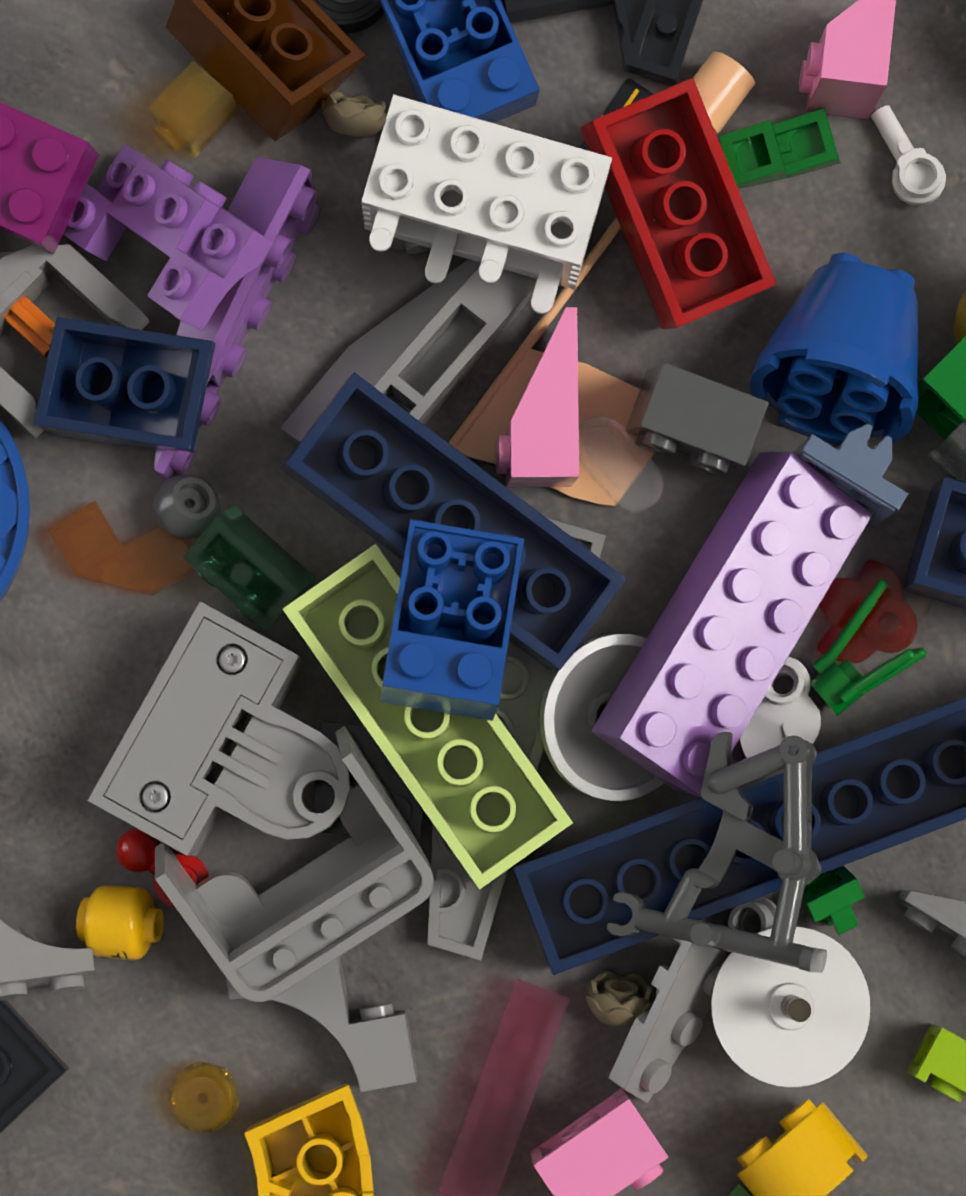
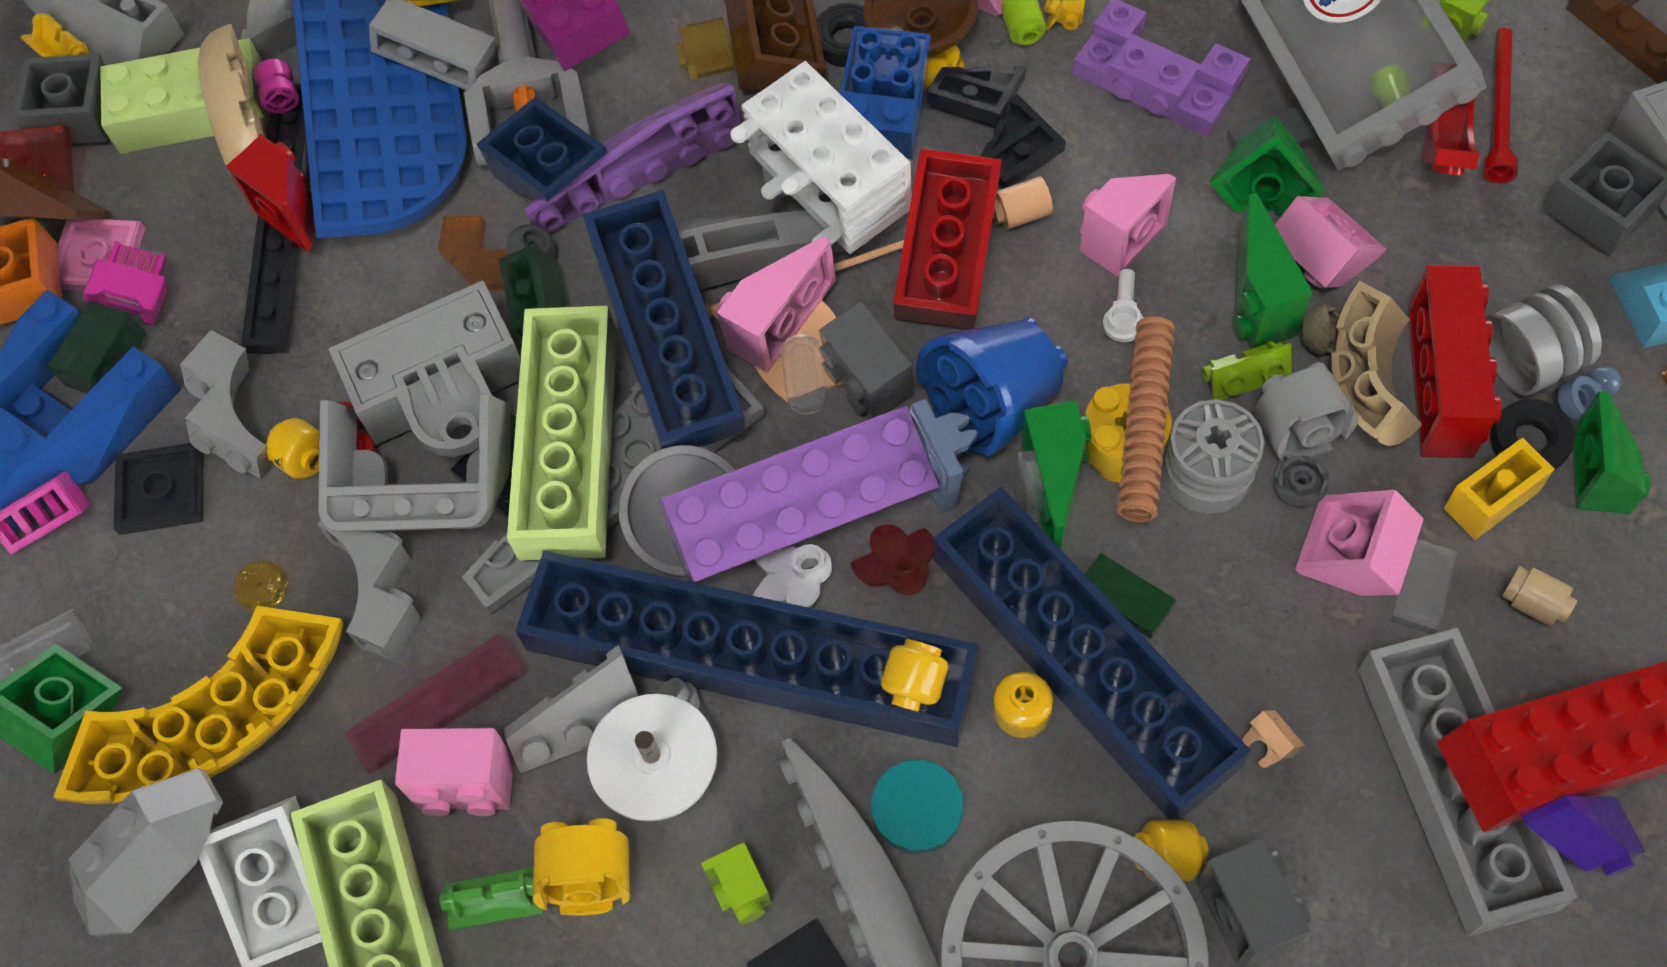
camera: 45 degrees right, 20 degrees down
(204, 241) = (641, 90): medium lavender bracket -> none
(452, 620) = (608, 364): blue slope -> none
(618, 998) = (546, 683): dark tan plate -> none
(780, 150) = (1039, 259): green slope -> none
(790, 858) = (711, 632): dark grey piece -> none
(831, 897) = (737, 718): green tile -> none
(842, 683) = (846, 586): green plant -> none

